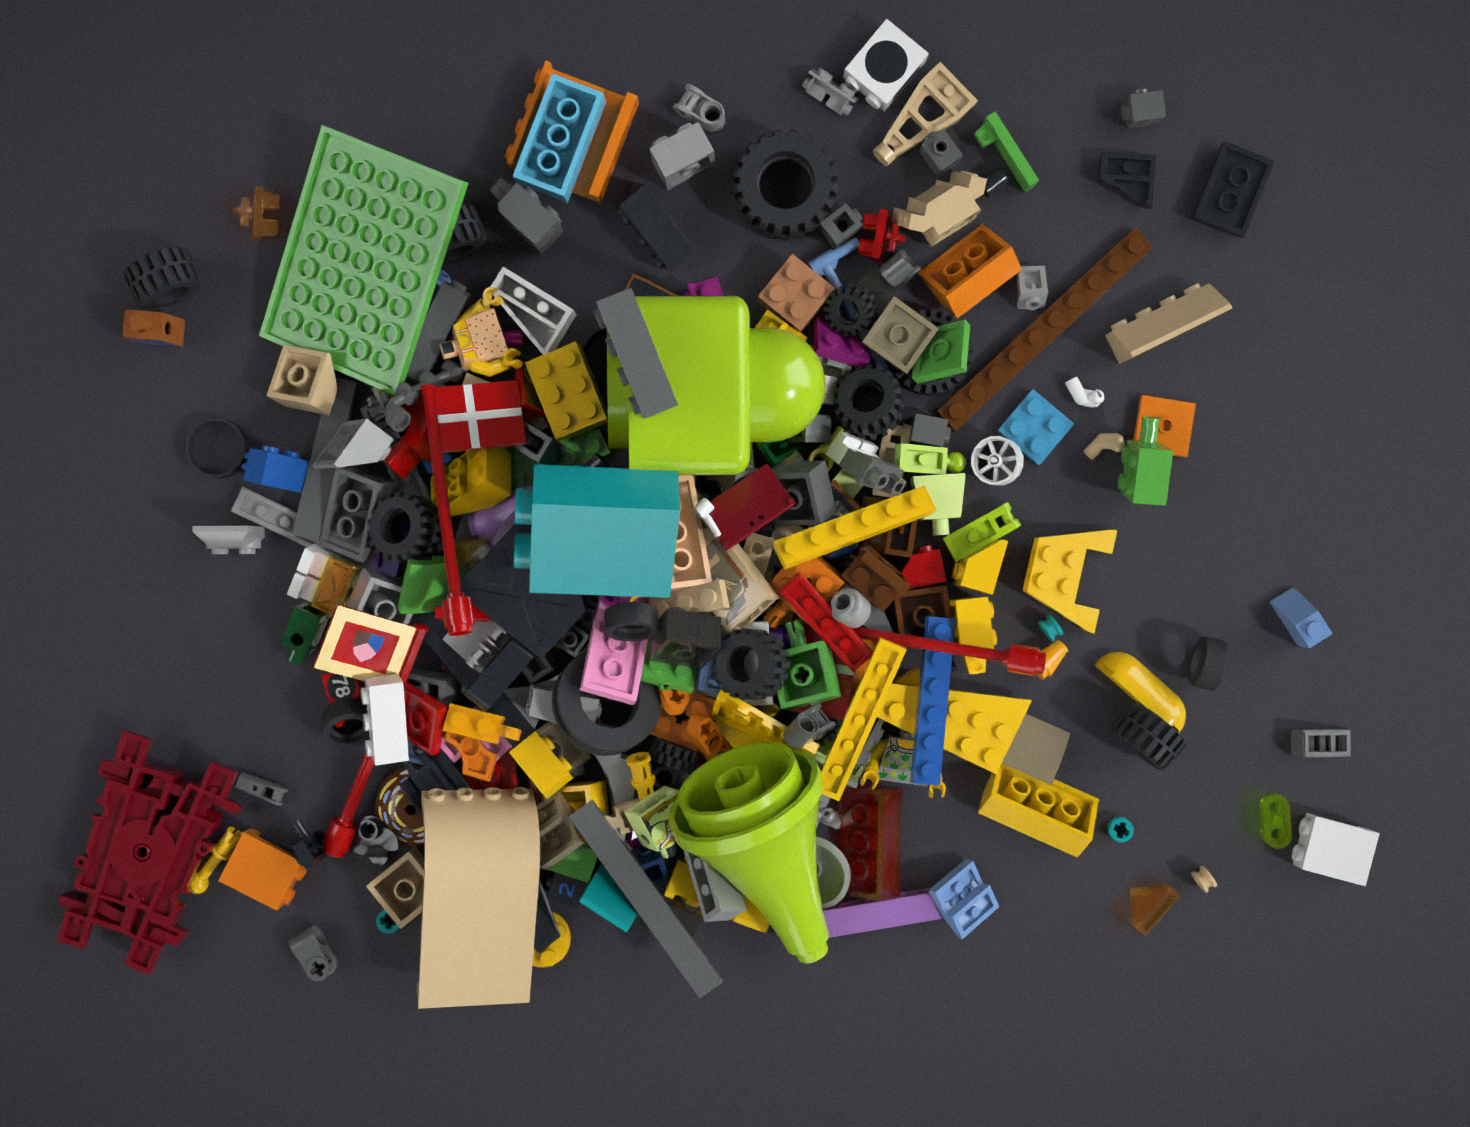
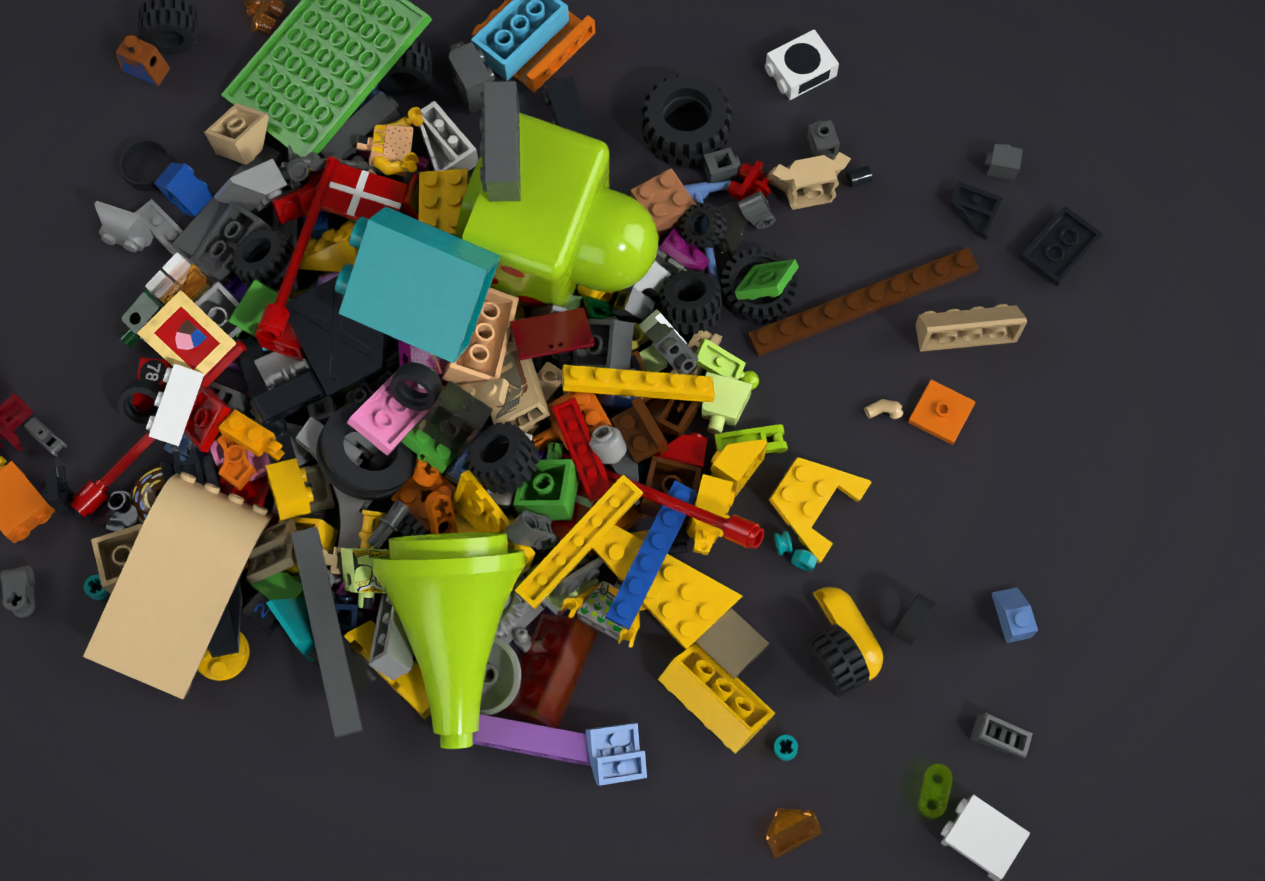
camera: 20 degrees right, 20 degrees down
(660, 769) = (388, 524): none -> dark grey axle
(682, 155) = (612, 72): light grey brick -> none
(697, 105) = (639, 48): light grey piece -> none
(703, 509) = (514, 319): white hand -> none
(839, 95) = (744, 62): light grey hinge -> none
(899, 335) = (736, 255): dark tan plate -> none
(929, 431) = (736, 342): dark grey brick -> none
(947, 93) = (844, 97): tan plate -> none
(970, 270) = (817, 234): orange slope -> none
(995, 132) = (874, 139): bright green hinge -> none
(997, 460) = (785, 387): white wheel -> none
(1032, 287) = (863, 265): light grey bracket -> none
(1035, 427) = (828, 375): dark azure plate -> none
(1055, 654) = (771, 569): light orange cone -> none
(1077, 637) = (804, 559): none -> teal tile
(1084, 396) = (879, 365): white arm -> none
(1146, 466) = (913, 428): bright green brick -> none
(1204, 879) = (849, 821): tan bush -> none

